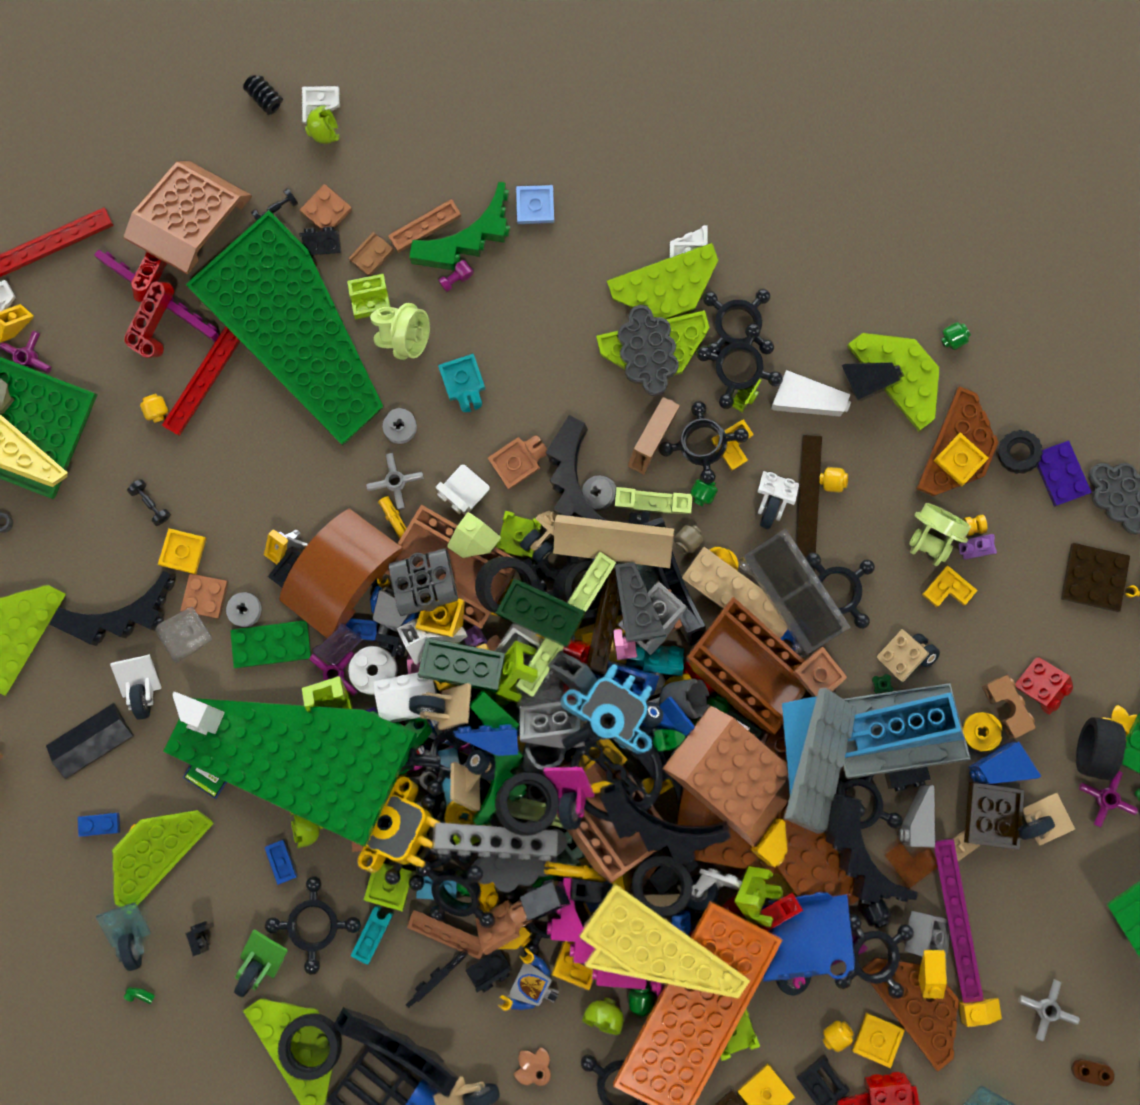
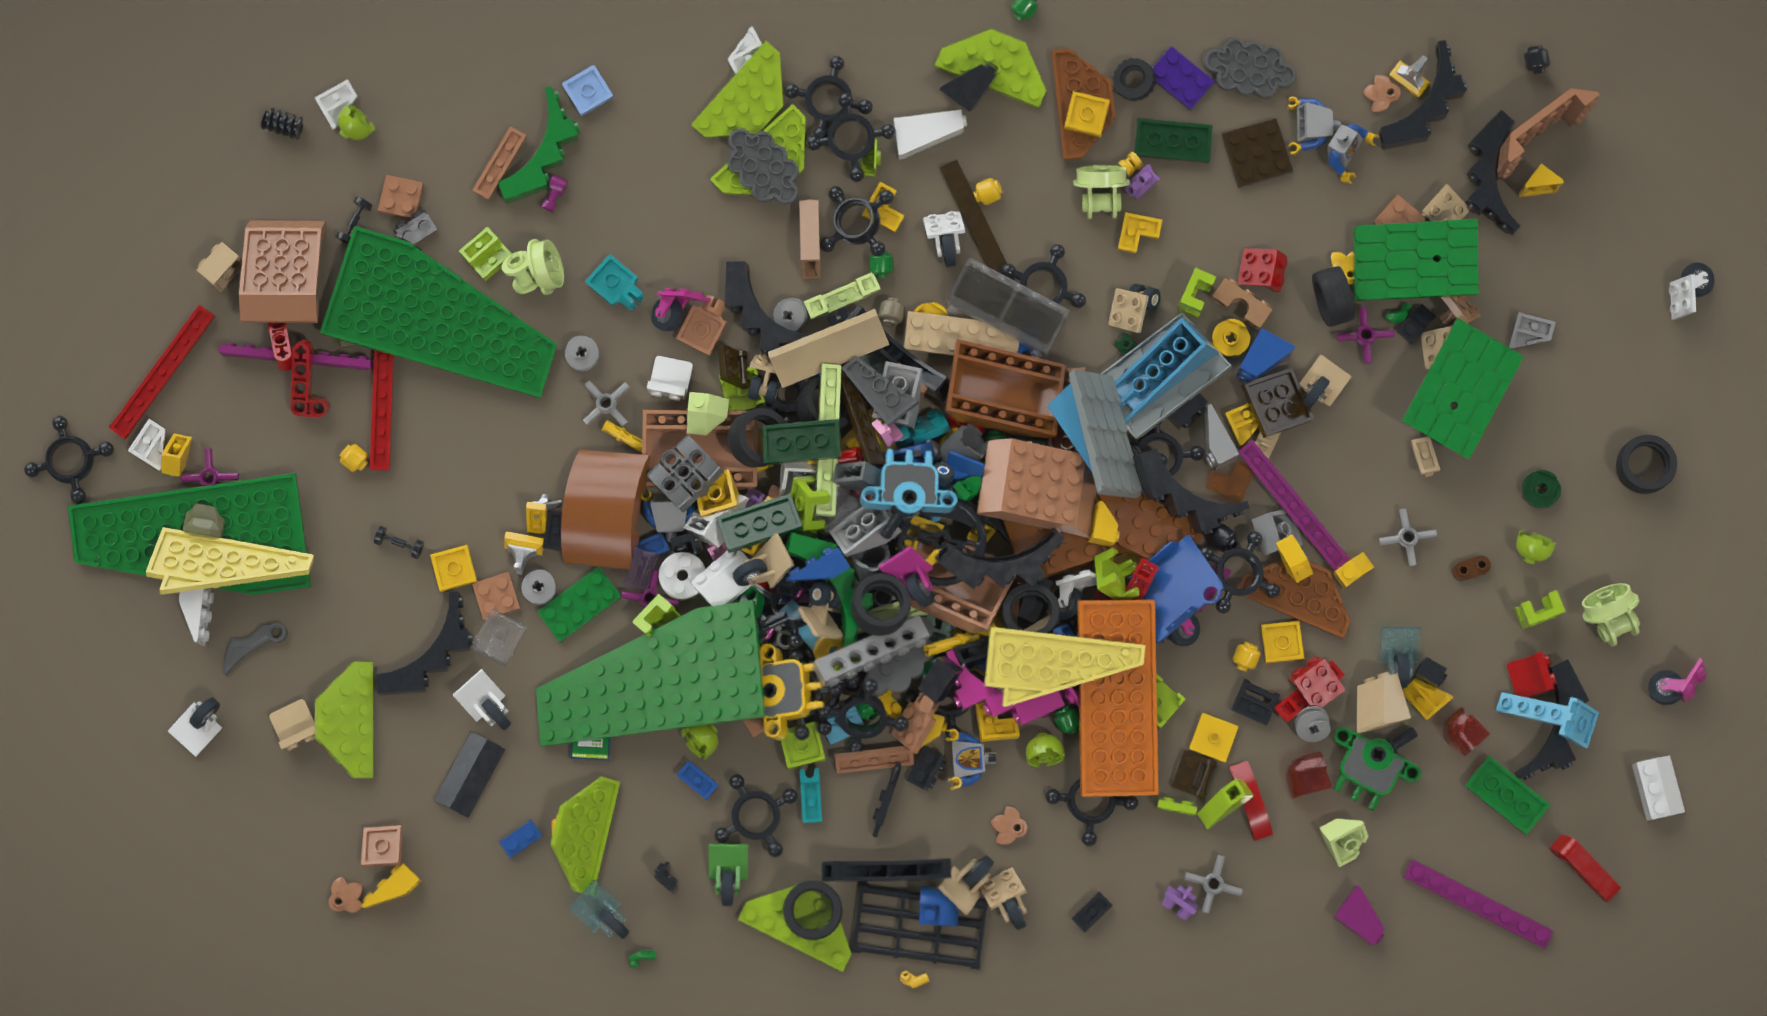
camera: 30 degrees left, 0 degrees up
(135, 183) = (220, 266): none -> tan brick
(197, 715) = (557, 691): white slope -> none
(249, 568) = (522, 548): none -> piece
(371, 254) = (465, 215): medium nougat plate -> none
(496, 428) = (669, 308): none -> plate
(518, 507) = (729, 366): none -> dark brown plate
(819, 672) = (1063, 360): nougat plate -> none
(950, 815) = (1241, 423): none -> yellow wing
(981, 664) = (1199, 280): none -> lime panel
(1025, 525) = (1173, 140): none -> dark green plate
(1105, 943) = (1425, 456): none -> tan plate

